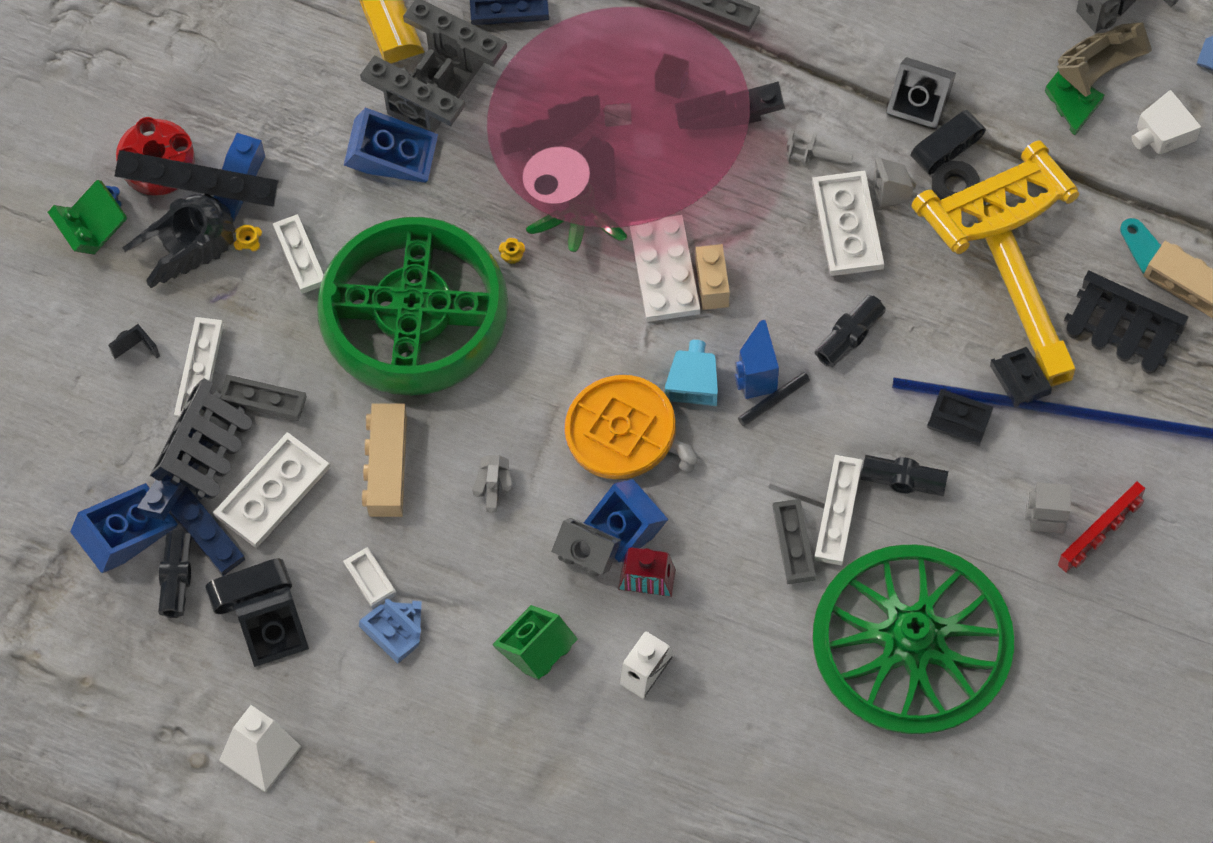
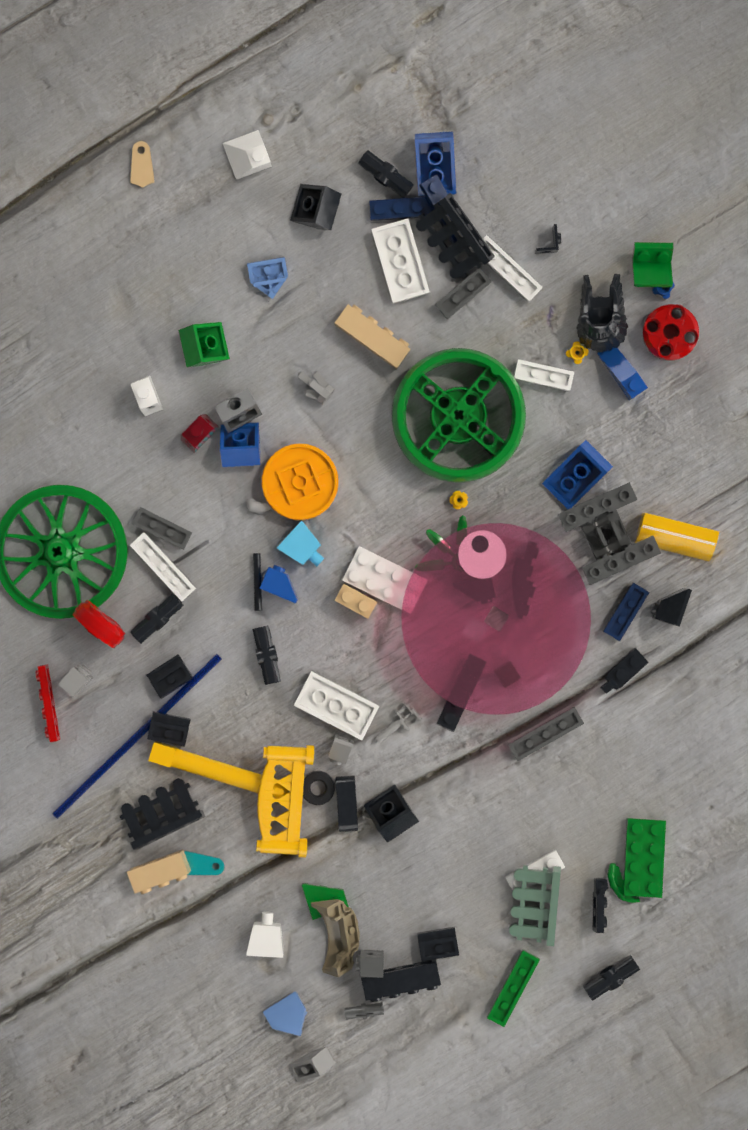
camera: 120 degrees right, 25 degrees up
(196, 178) = (632, 343): black plate -> none
(247, 584) = (349, 209): black beam -> none
(369, 577) = (308, 281): white tile -> none
(962, 521) = (99, 624): none -> red piece

